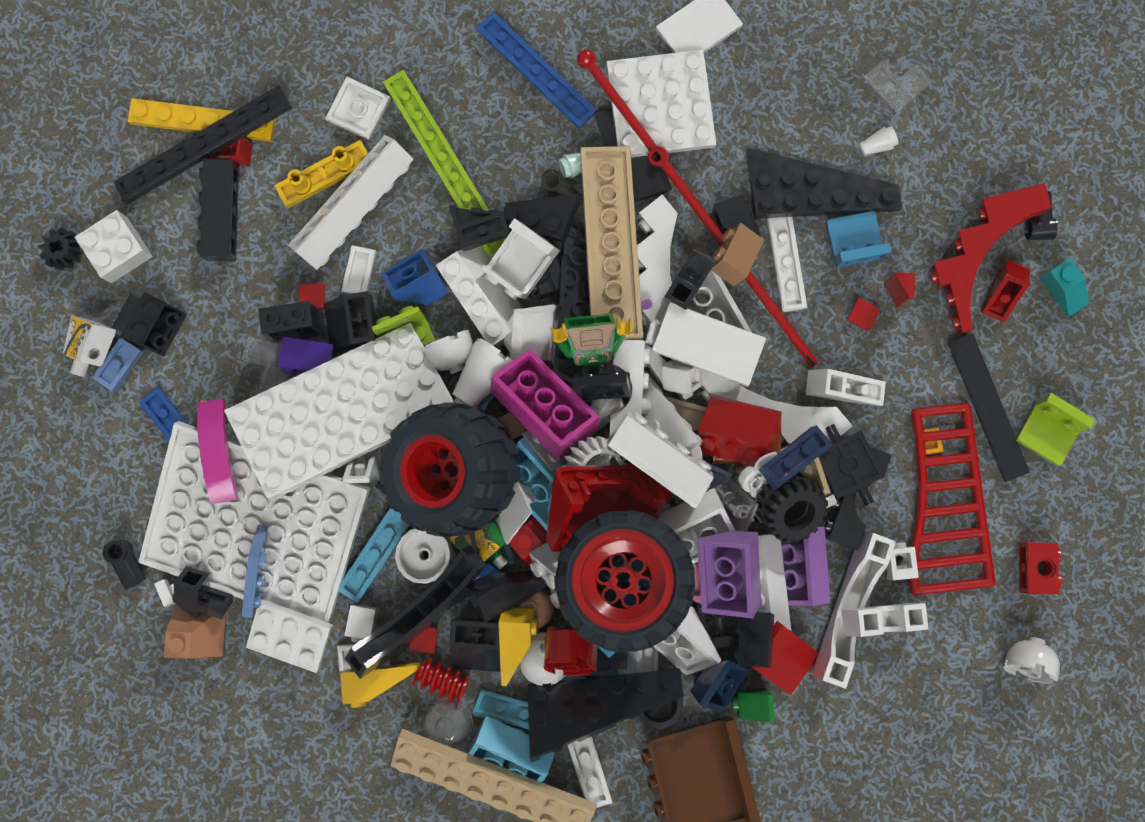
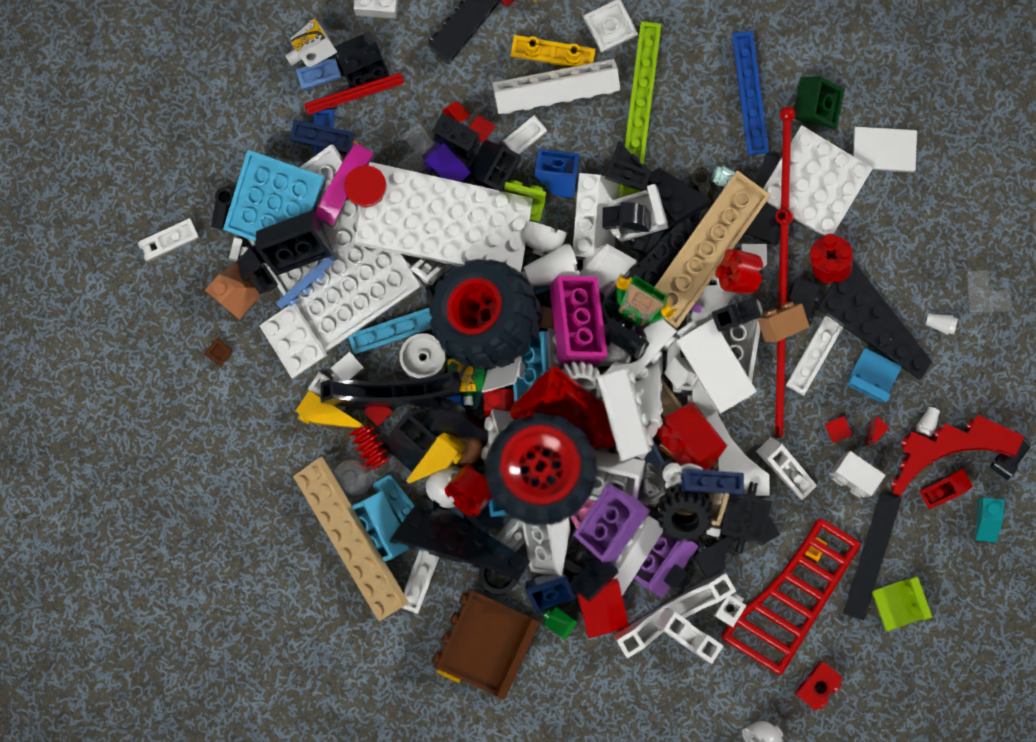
camera: 30 degrees right, 0 degrees up
(95, 634) = (168, 239): none -> white plate
(161, 422) = (321, 136): none -> dark blue plate
(165, 357) = (353, 93): none -> red axle
(165, 521) = (270, 193): none -> medium azure plate
(211, 546) = (293, 243): none -> black slope
(227, 703) = (218, 352): none -> reddish brown tile
(236, 437) = (365, 186): none -> red tile
(276, 297) = (456, 112): none -> red tile
(513, 267) = (628, 215): none -> black brick
(604, 28) = (818, 101): none -> dark green slope
(660, 238) = (739, 272): none -> red brick
(733, 161) = (831, 259): none -> red brick
(831, 574) = (677, 578): none -> black slope
(917, 342) = (857, 475): none -> white brick
(940, 243) = (927, 425): none -> white cone

